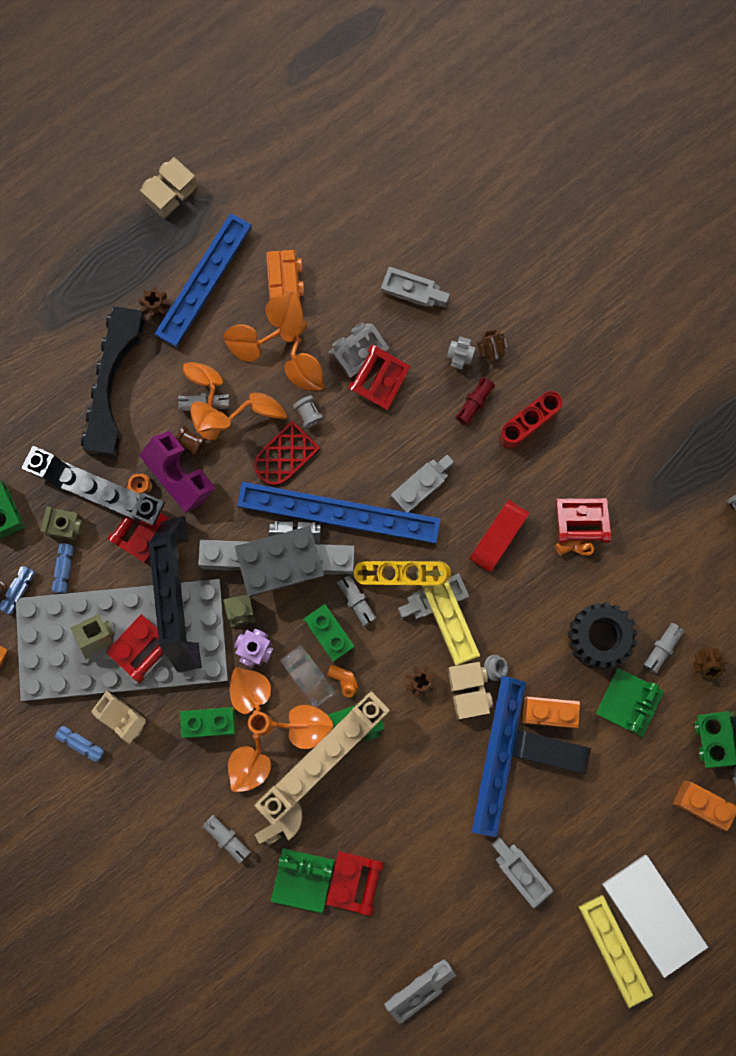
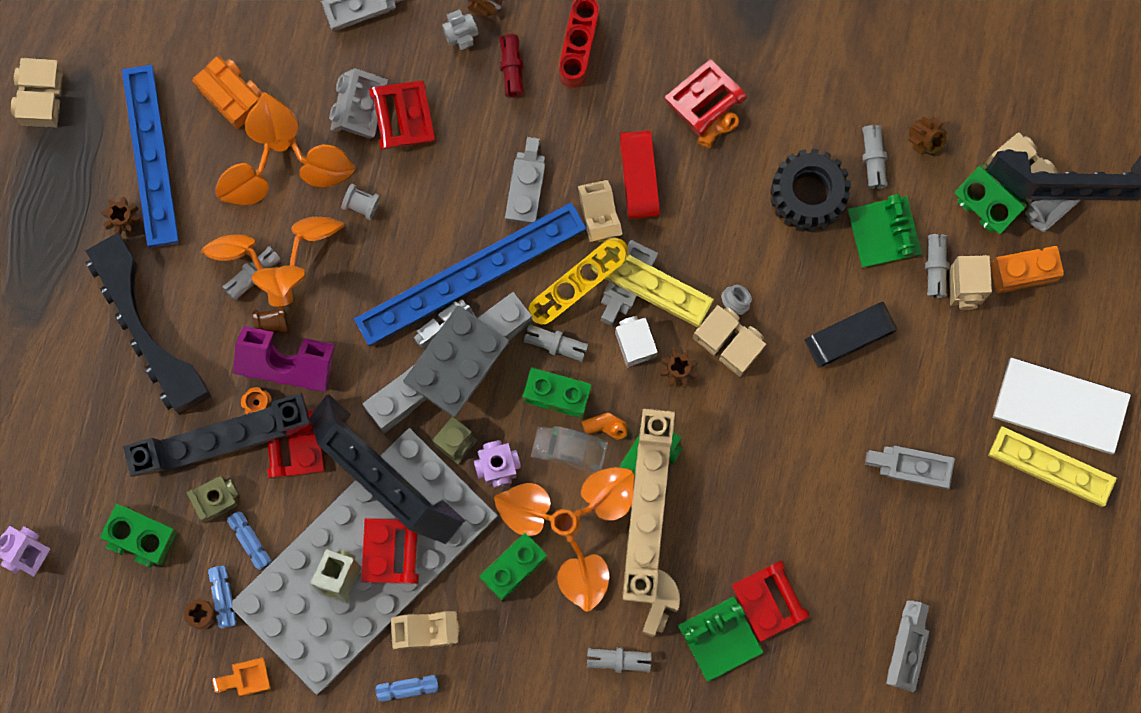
camera: 40 degrees left, 0 degrees up
(292, 424) = (349, 268): red window -> none
(408, 641) = (635, 341): none -> white brick
(453, 539) = (599, 211): none -> tan brick
(499, 756) = (806, 377): blue plate -> none
(551, 712) = (820, 299): orange brick -> none
(646, 753) = (937, 265): none -> light grey pin
(659, 783) = (969, 281): none -> tan piece

